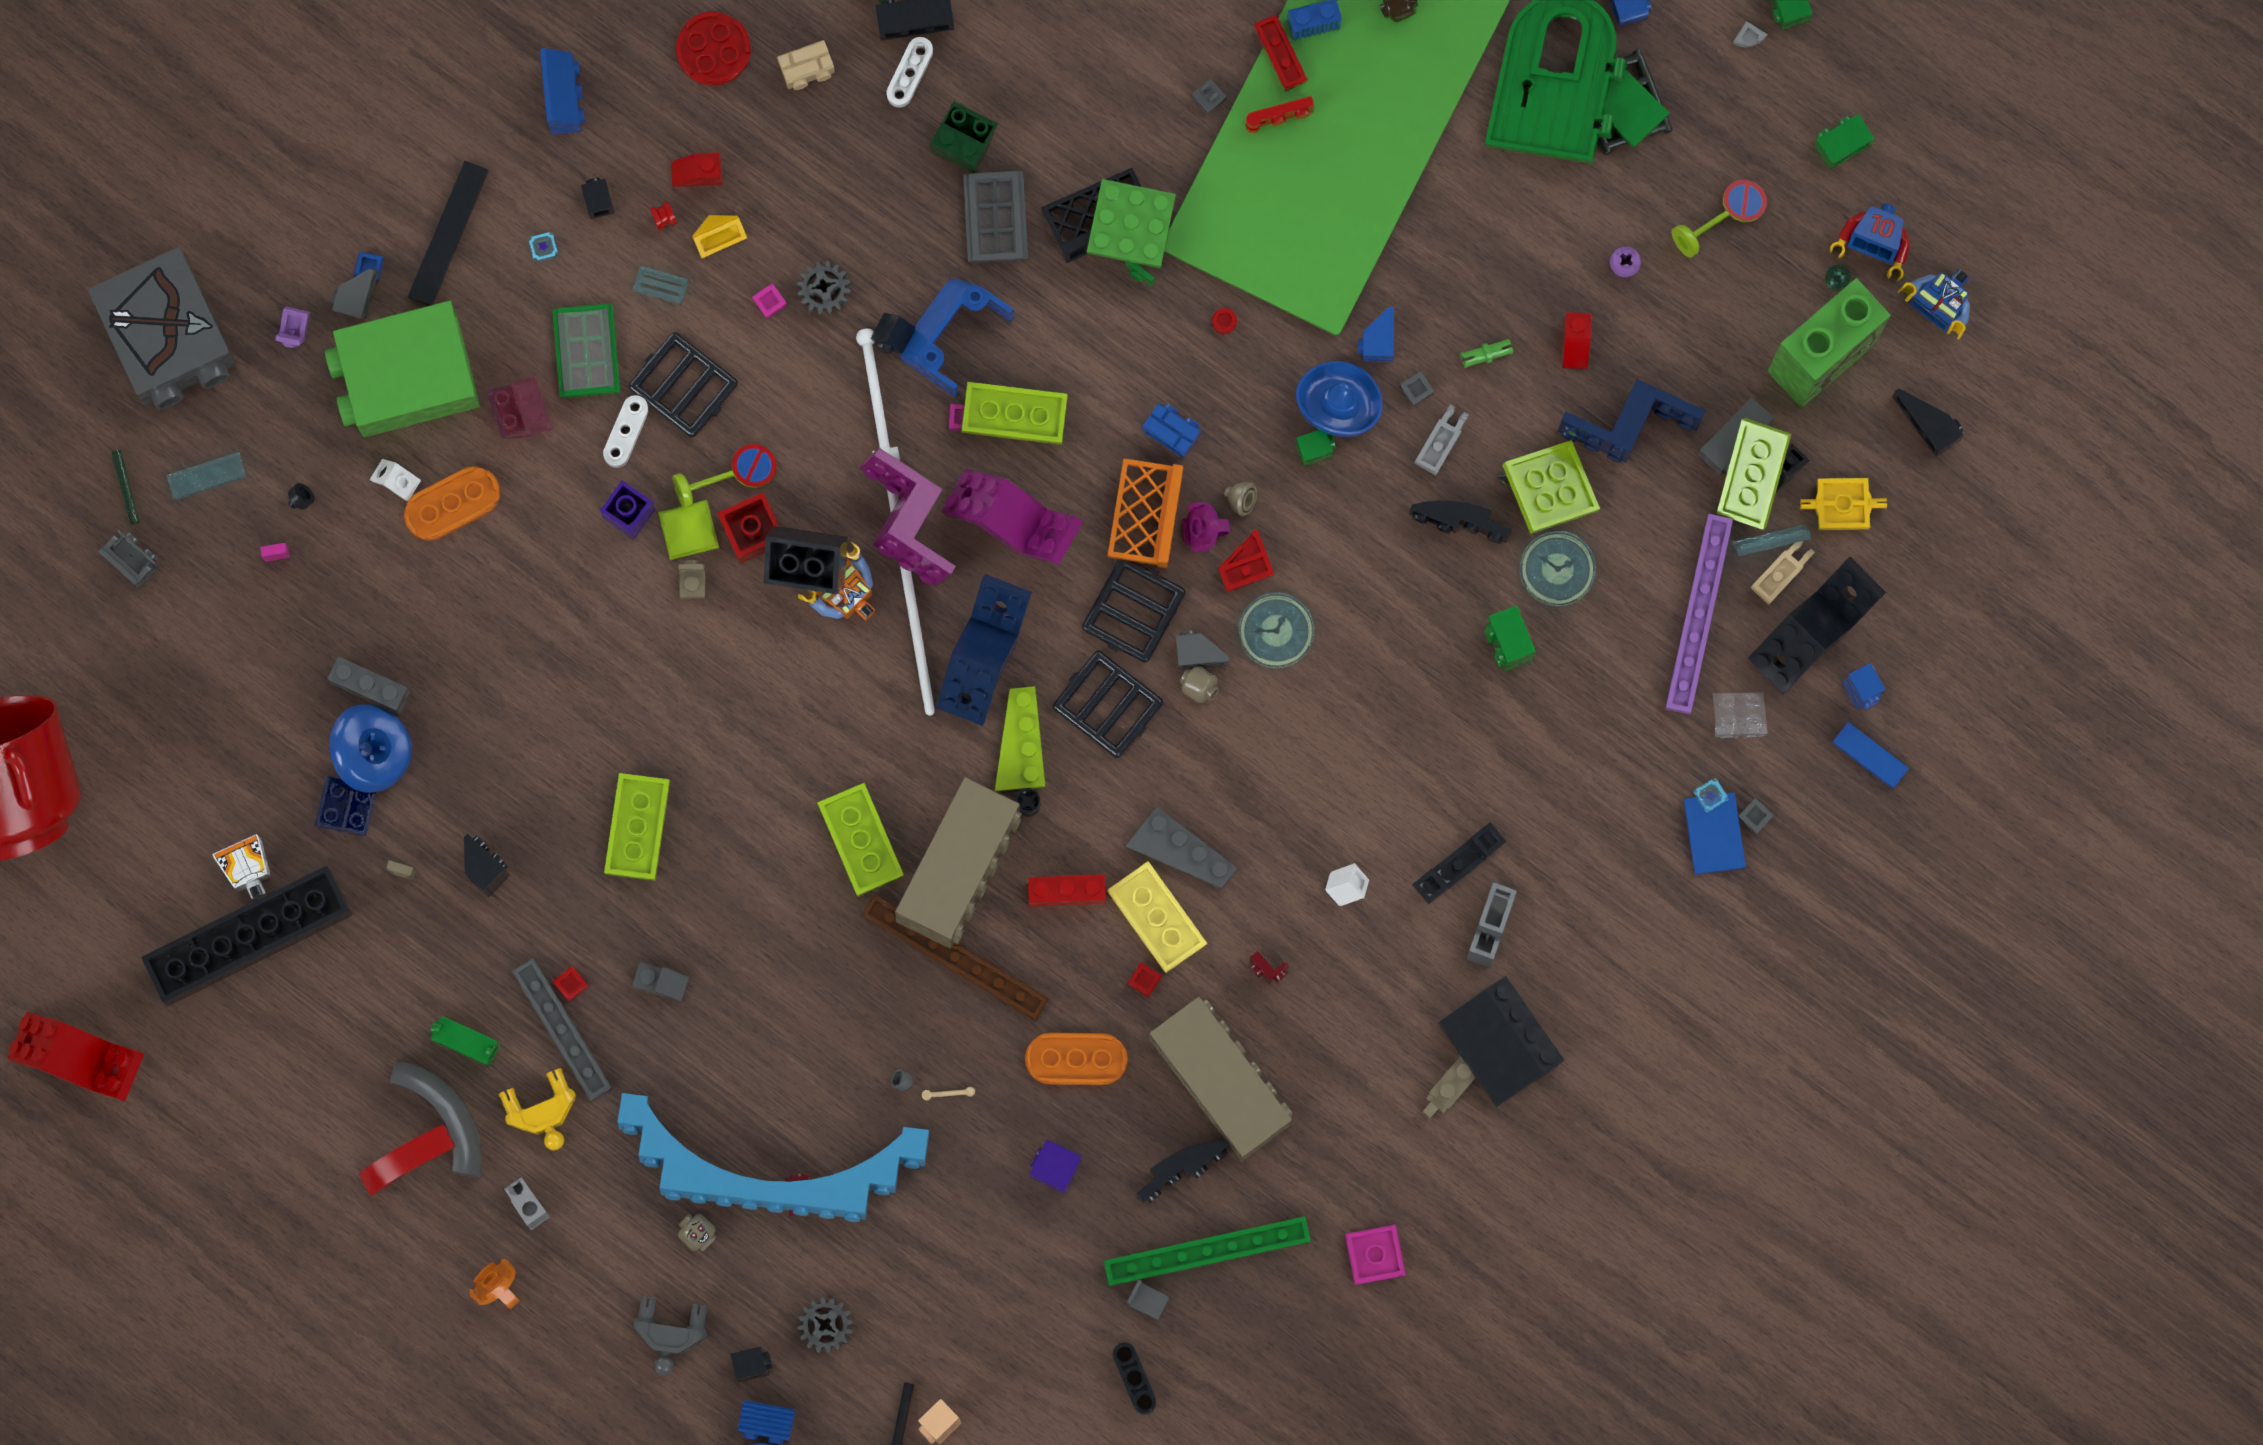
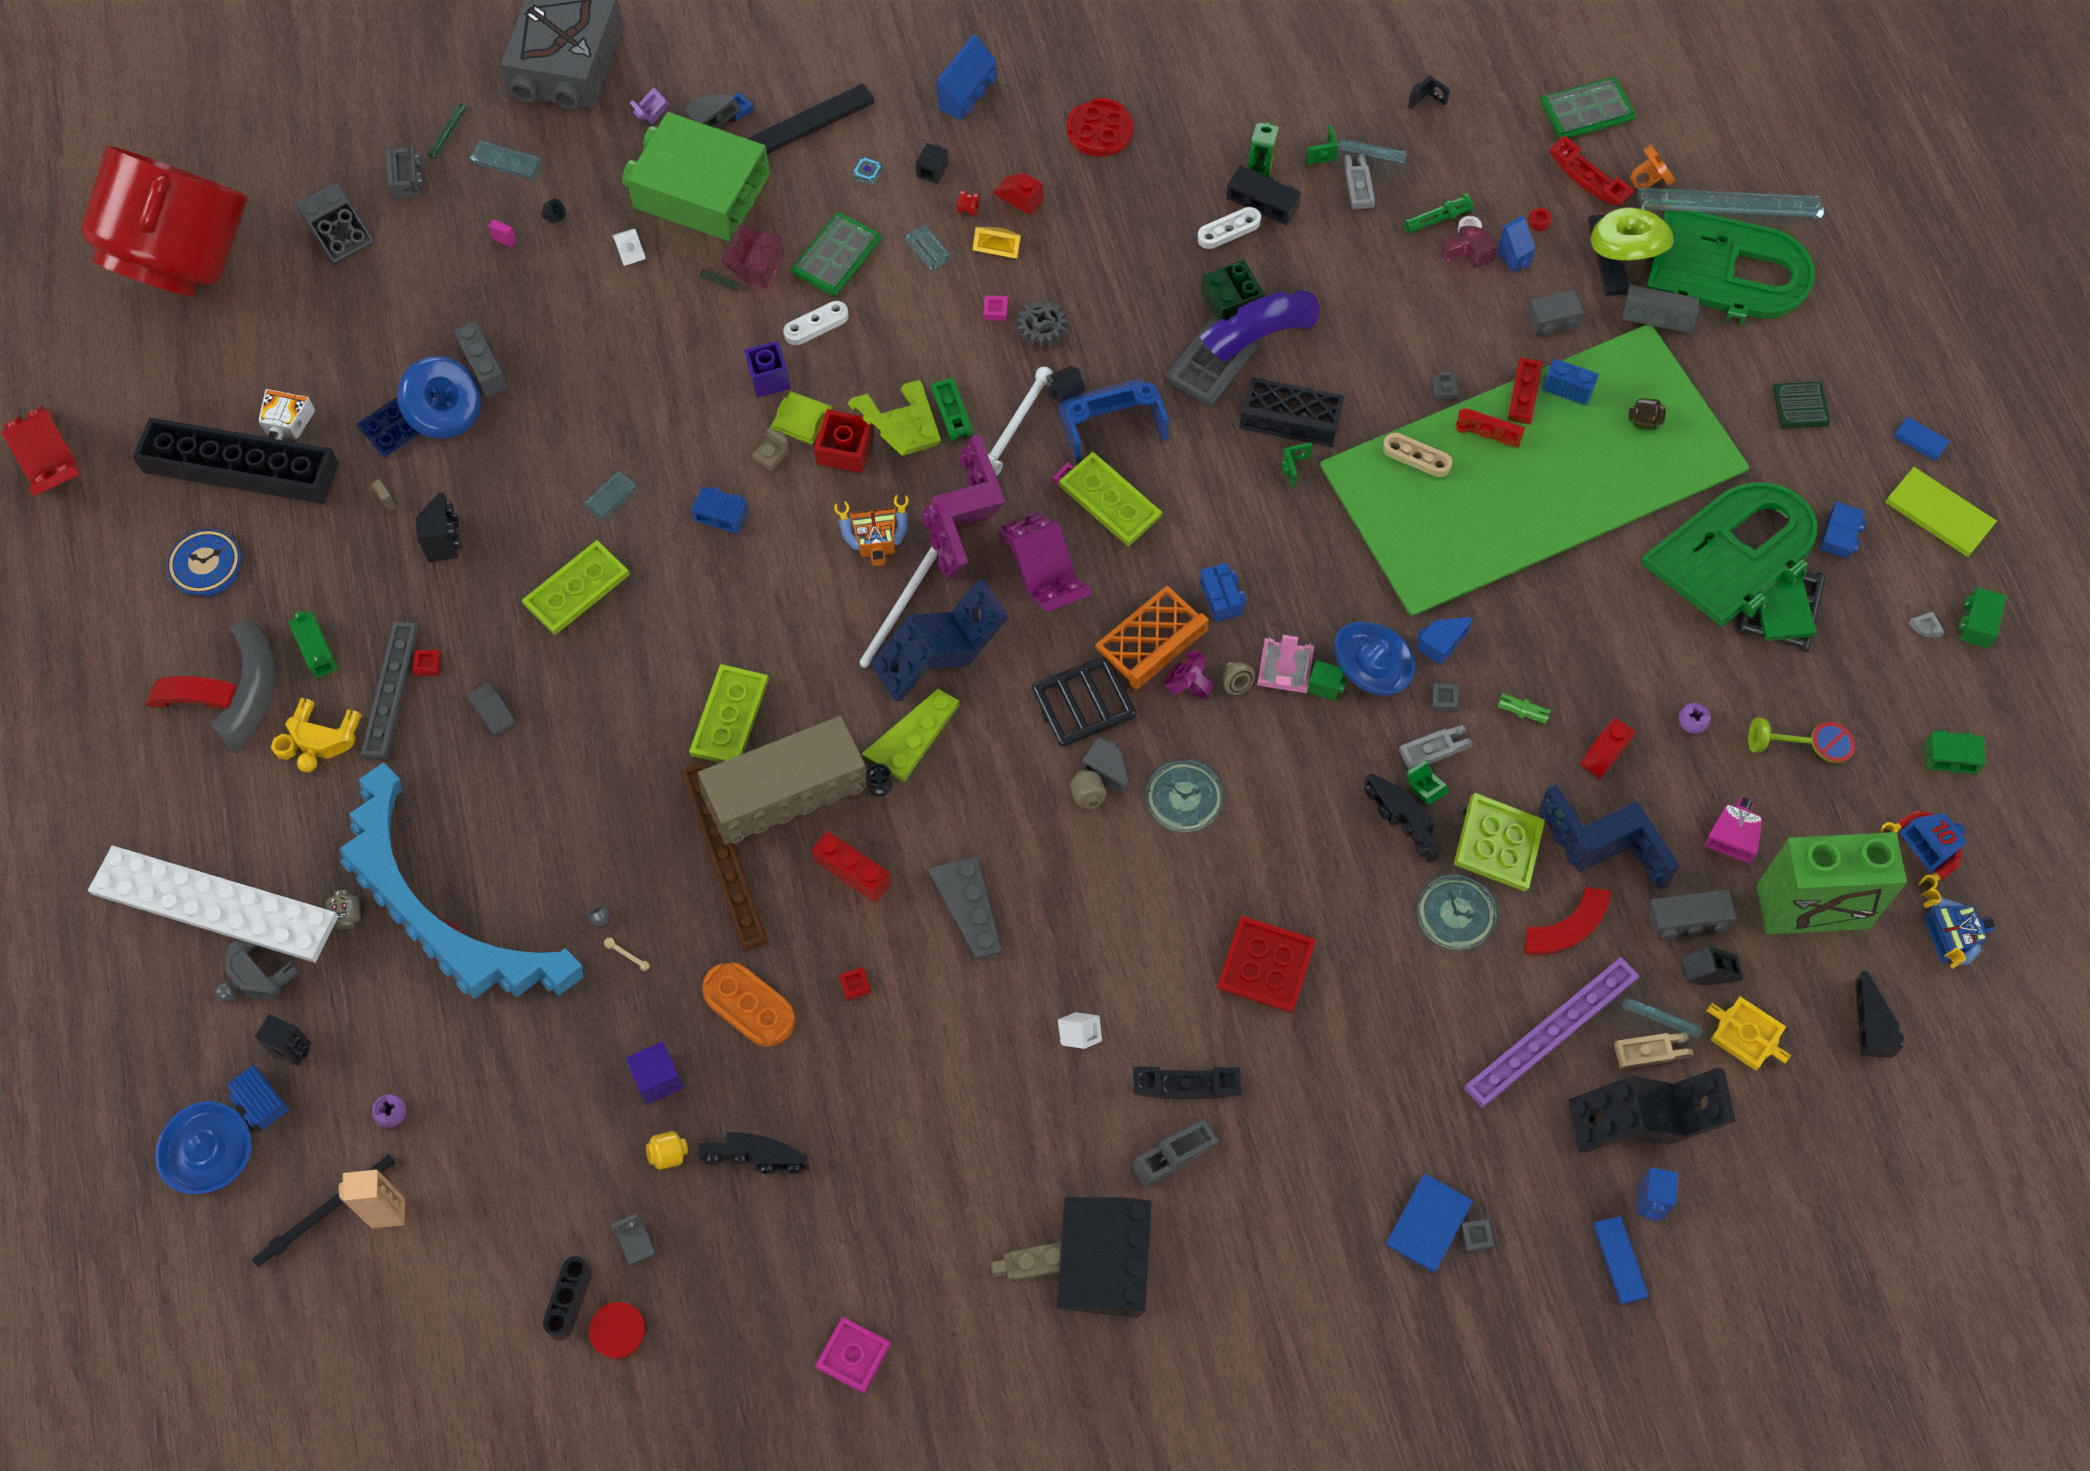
camera: 40 degrees right, 15 degrees down
(114, 654) = (334, 222): none -> dark grey slope
(301, 1042) = (204, 562): none -> tile
(452, 503) = (652, 287): orange tile -> none
(494, 1283) = (162, 834): orange tile -> none
(505, 452) = (720, 280): none -> clear green wheel
(521, 1141) = (284, 746): none -> yellow tile
(526, 1203) = (243, 794): light grey leg -> none
(589, 1307) = (213, 903): none -> white plate
(590, 723) = (610, 495): none -> clear light blue tile
(692, 354) = (909, 305): black bar -> none
(697, 667) = (720, 509): none -> blue brick
(751, 465) = (884, 398): piece -> none
(795, 474) = (904, 428): none -> lime wing
(805, 560) = (859, 479): black brick -> none
(806, 65) = (1156, 175): tan brick -> none
(812, 427) = (951, 409): none -> green plate
(818, 1335) = (359, 1055): dark grey gear -> none
(878, 1362) = (380, 1107): none -> medium lavender piece
(1016, 153) = (1261, 319): none -> dark purple brick
(1099, 735) = (978, 772): black bar -> none
(1113, 1217) = (666, 1150): none -> yellow head
(1131, 223) = (1310, 424): bright green plate -> none
(1157, 917) = (906, 943): light yellow tile -> none
(1189, 1372) = (617, 1330): none -> red tile
(1207, 1251) = (718, 1240): green plate -> none
(1221, 1078) = (845, 1104): dark tan brick -> none
(1224, 321) = (1328, 546): red tile -> none
(1246, 564) = (1200, 729): red wing -> none
(1247, 177) = (1409, 447): none -> tan plate
(1263, 968) = (954, 1042): dark red bracket -> none
(1271, 456) = (1285, 664): none -> bright pink piece
(1446, 723) = (1266, 964): none -> red plate
(1458, 478) = (1425, 783): none -> green bracket
(1510, 639) = (1370, 932): green brick -> none
(1656, 514) = (1572, 929): none -> red tile
(1711, 795) = (1450, 1186): clear light blue tile -> none
(1723, 338) = (1736, 831): none -> dark pink torso
(1739, 715) = (1526, 1140): clear hinge -> none
(1754, 473) = (1685, 947): lime plate -> none

